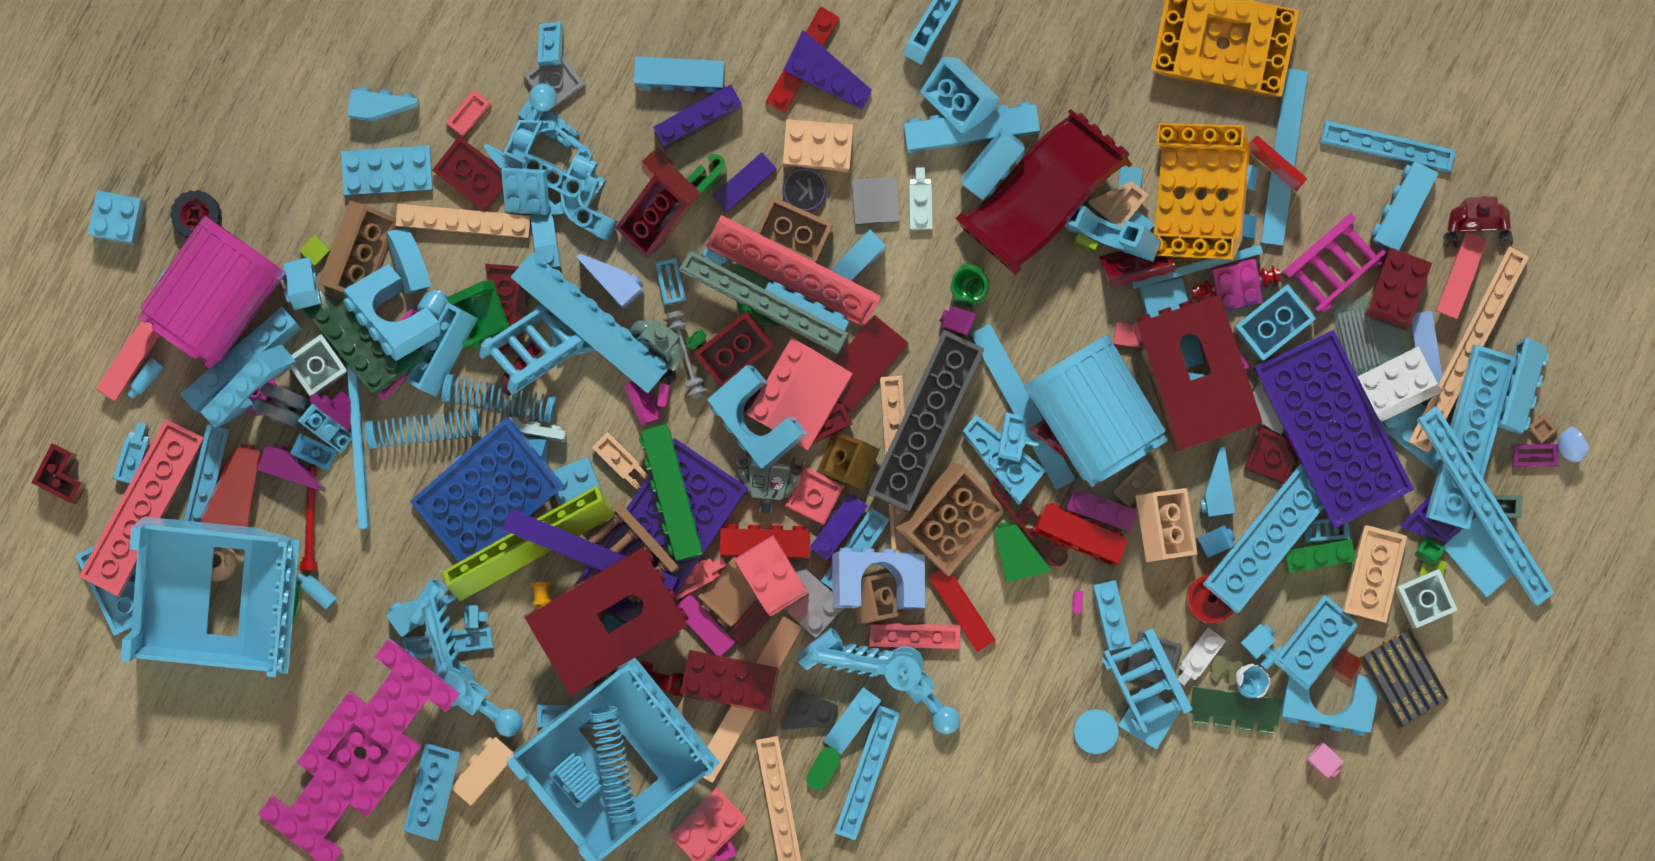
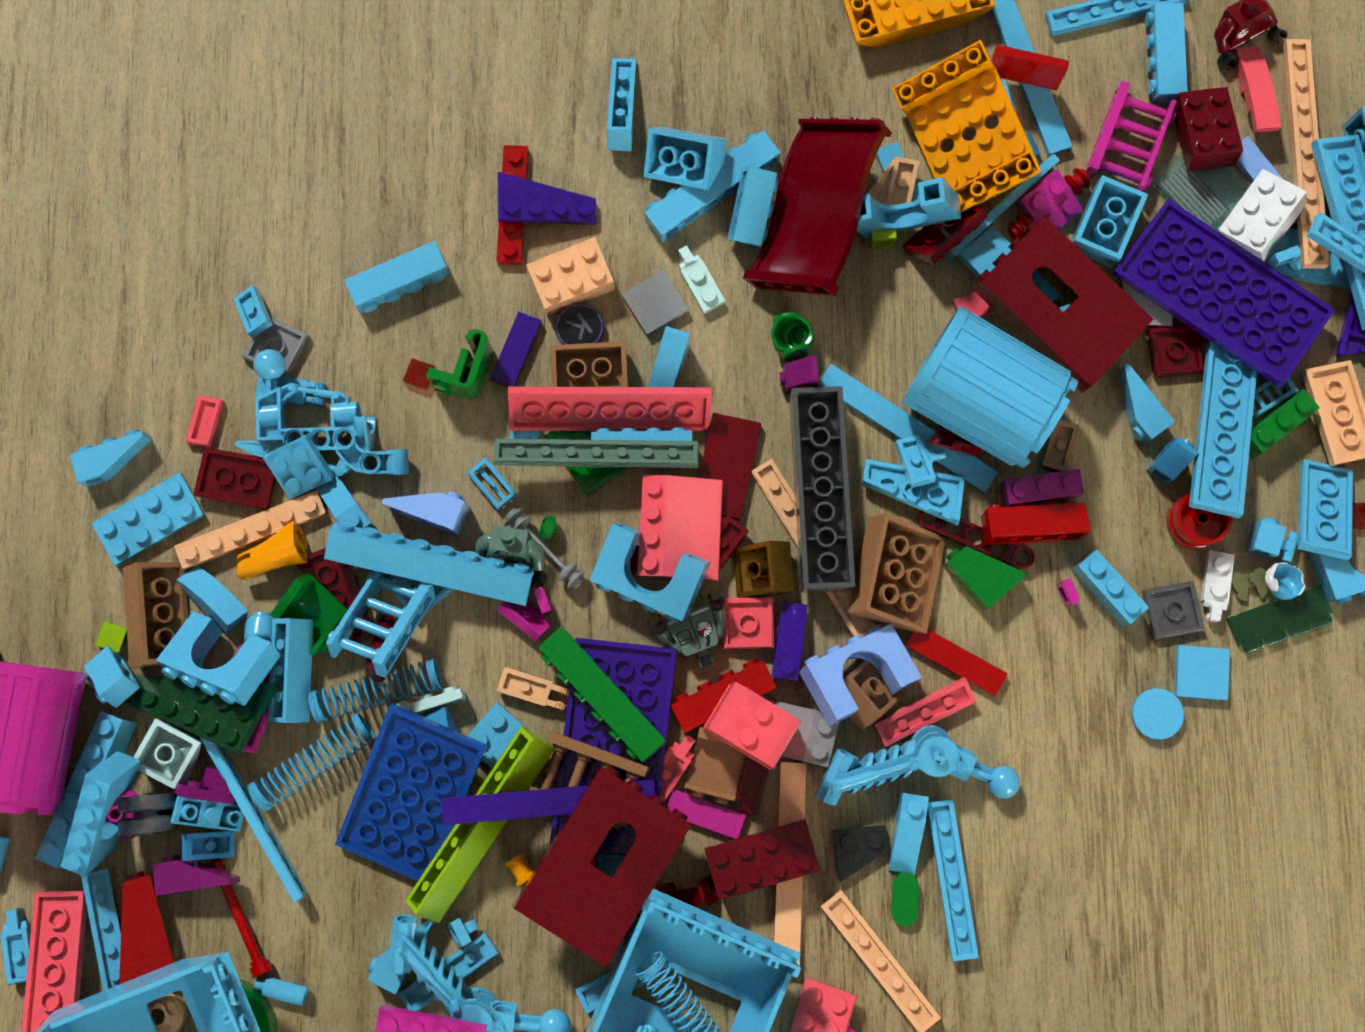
camera: 30 degrees left, 5 degrees down
(475, 250) = (280, 550): none -> light orange piece
(658, 210) = (442, 414): dark red brick -> none
(698, 117) = (437, 308): dark purple brick -> none
(734, 348) = (590, 515): dark red brick -> none
(863, 537) = (819, 640): medium azure plate -> none
(1159, 662) = (1206, 624): medium azure fence -> none
(1166, 525) = (1115, 469): light nougat brick -> none
(1397, 426) = (1284, 257): none -> medium azure tile

